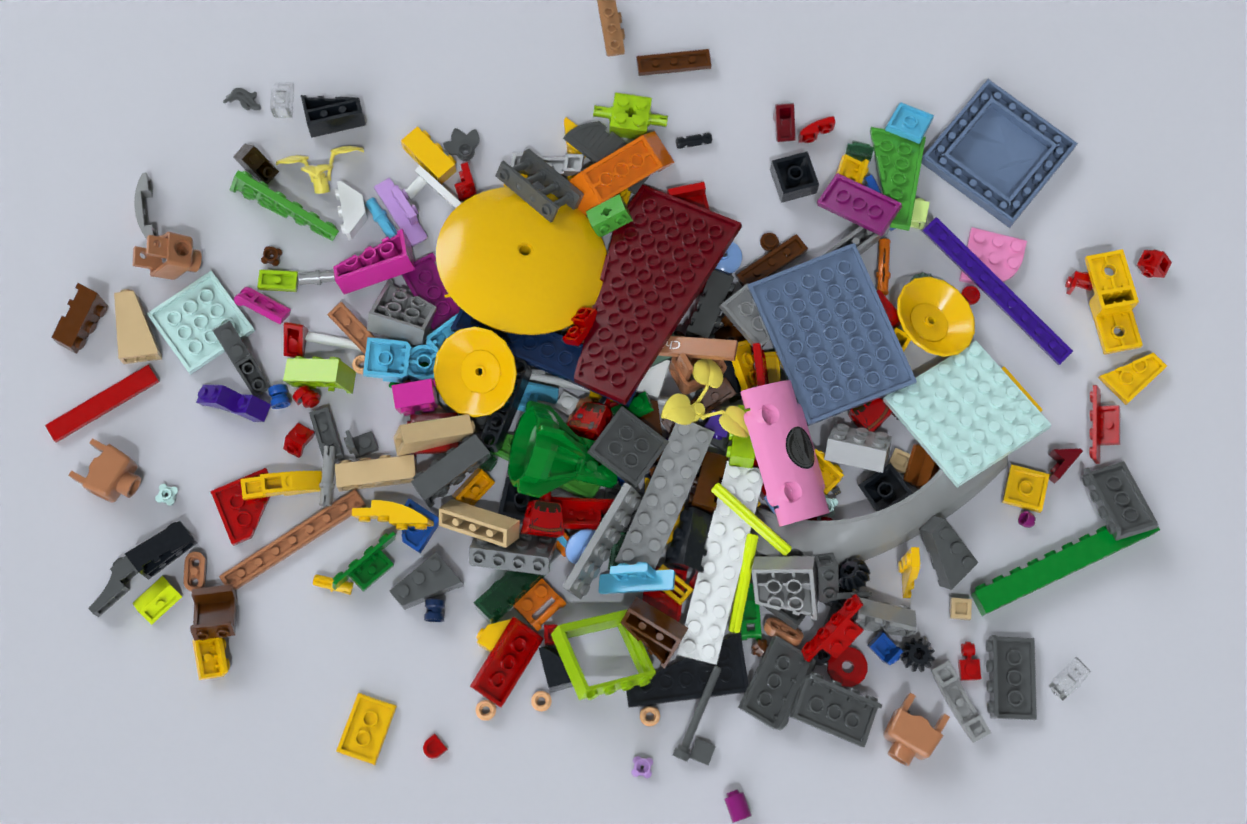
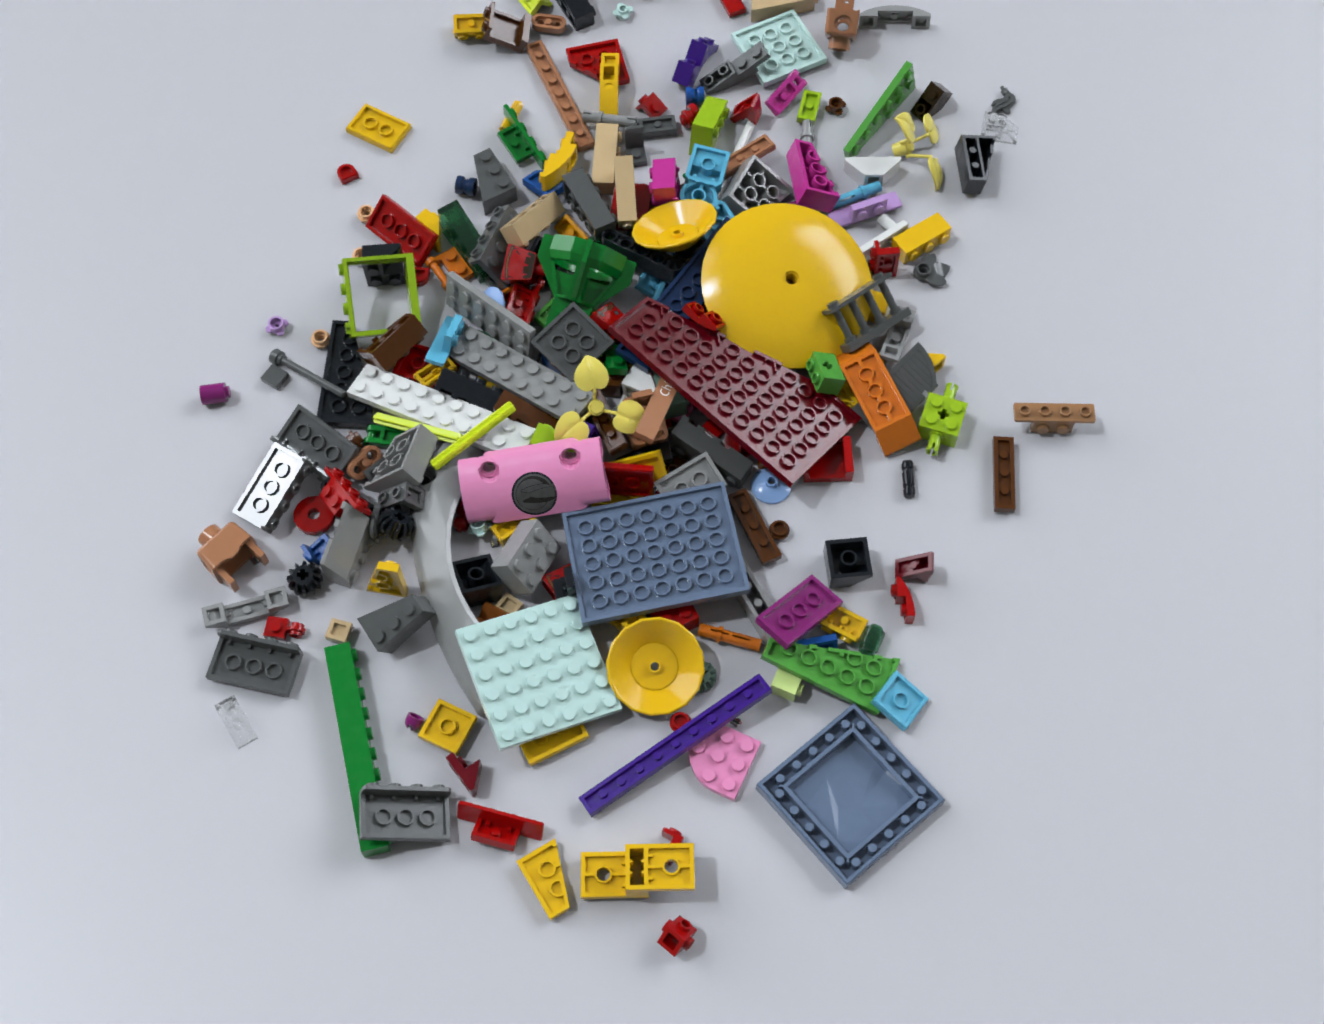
camera: 105 degrees right, 10 degrees down
(880, 406) = (564, 585): none -> black bracket

